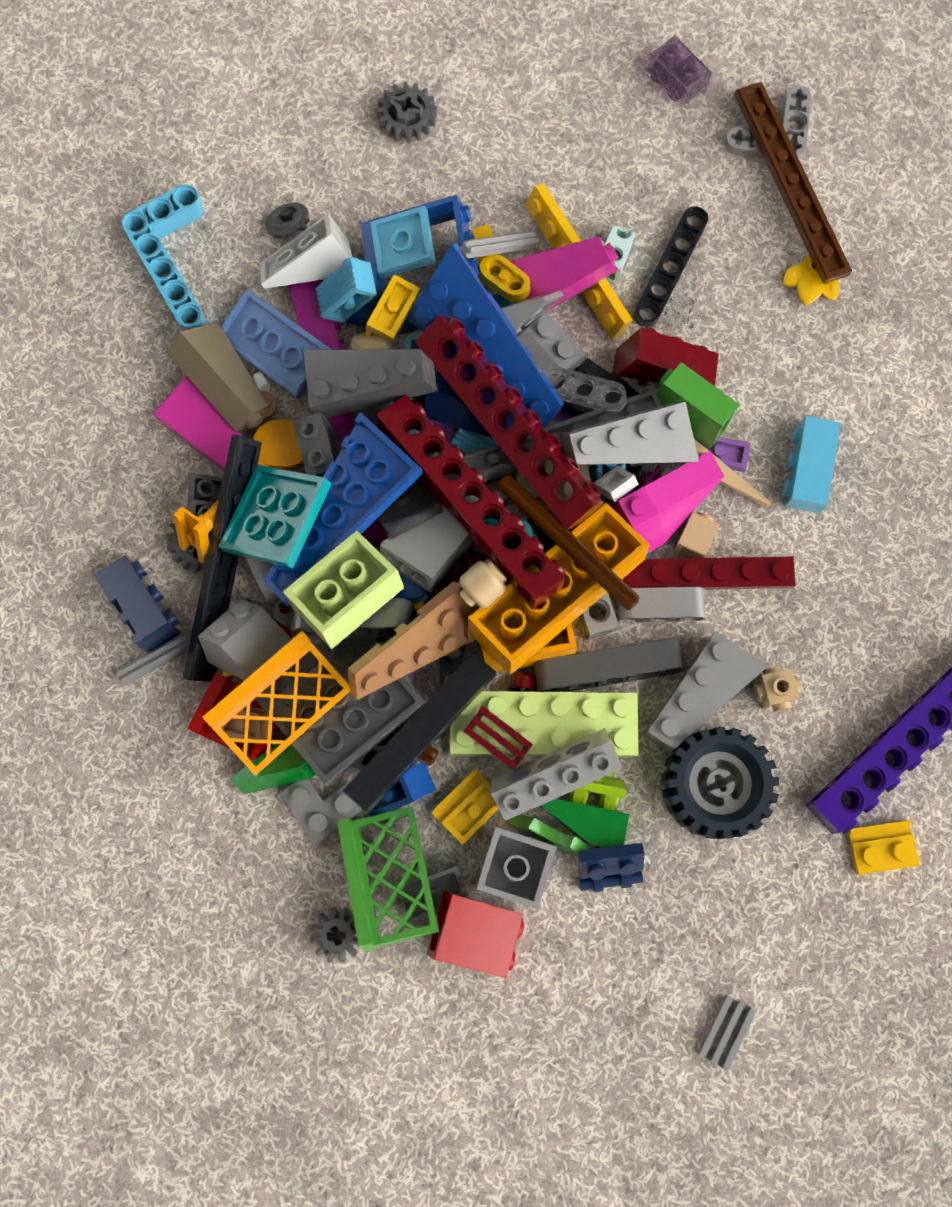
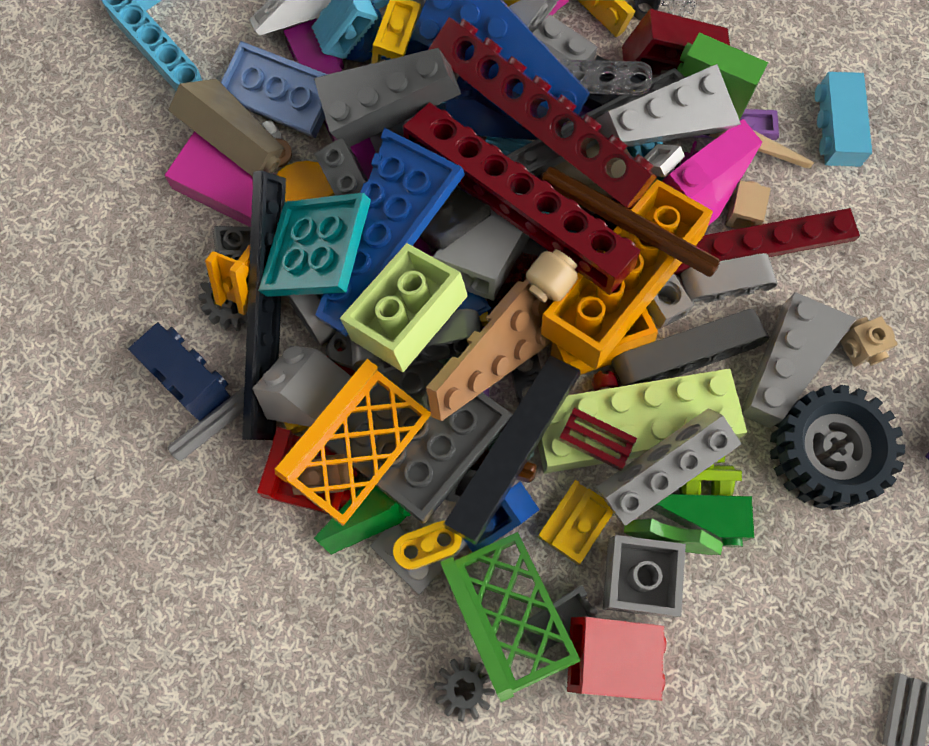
camera: 10 degrees left, 5 degrees down
(329, 805) = (426, 543): none -> yellow plate
(611, 867) = (745, 557): dark blue plate -> none

